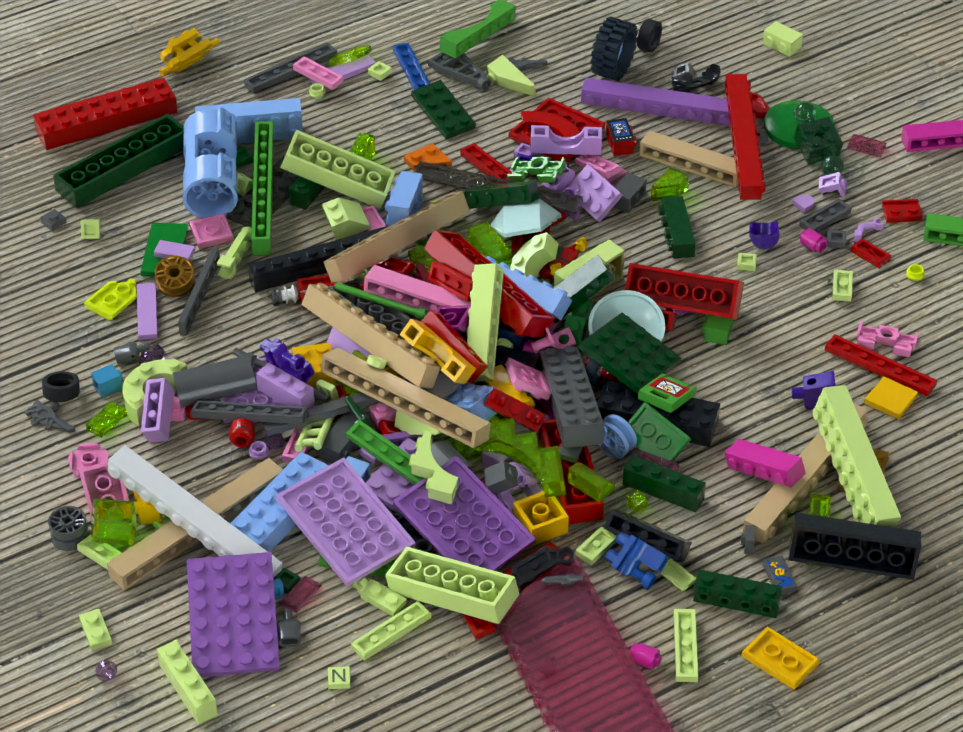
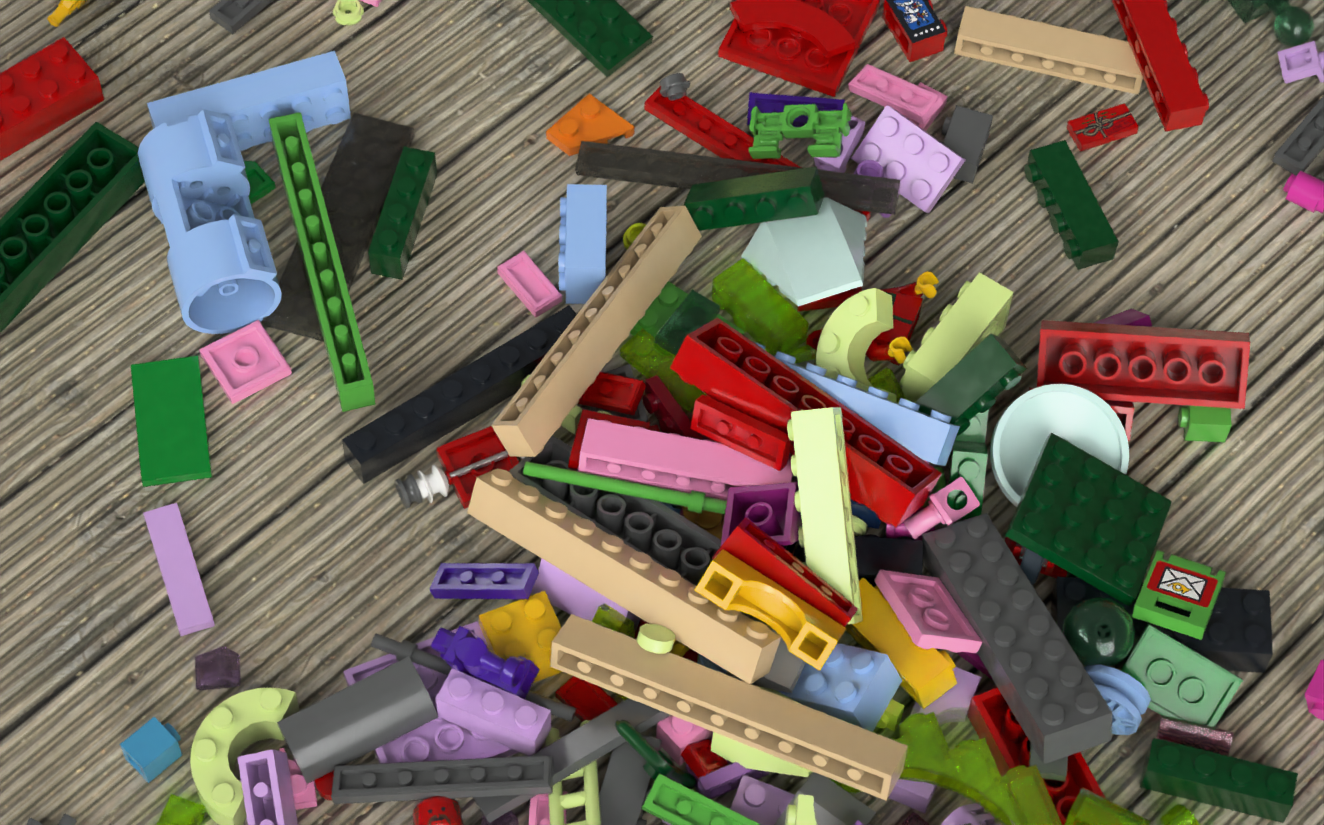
camera: 15 degrees left, 15 degrees up
(60, 386) = (61, 763): black tyre -> none
(90, 228) = (20, 402): yellowish green tile -> none
(112, 298) = (107, 551): neon yellow tile -> none
(129, 351) = (174, 673): dark grey piece -> none
(168, 248) = (193, 426): lavender tile -> none
(178, 267) = (211, 464): pearl gold wheel -> none
(199, 292) = (265, 509): dark grey tile -> none
(234, 255) = (300, 436): yellowish green plate -> none
(244, 184) = (280, 247): yellowish green tile -> none
(302, 336) = (484, 581): none -> dark purple plate
(328, 389) = (569, 696): yellowish green tile -> none
(338, 169) = (448, 198): yellowish green brick -> none
(345, 217) = (485, 292): yellowish green slope -> none
(364, 146) = (470, 139): clear neon green brick -> none
(477, 143) = (674, 86): none -> dark grey plate
(513, 408) = (930, 693): red plate -> none
(523, 149) = (755, 81): lavender tile -> none
(586, 142) = (868, 54): lavender arch -> none
(617, 400) = (1082, 626): none -> clear green cylinder
(670, 184) = (1032, 114): clear neon green slope -> none
(709, 197) = (1102, 127): none -> red tile
(746, 261) = (1207, 255): yellowish green tile -> none
(764, 234) = (1227, 196): dark purple helmet -> none
(803, 203) = (1265, 110): lavender tile -> none

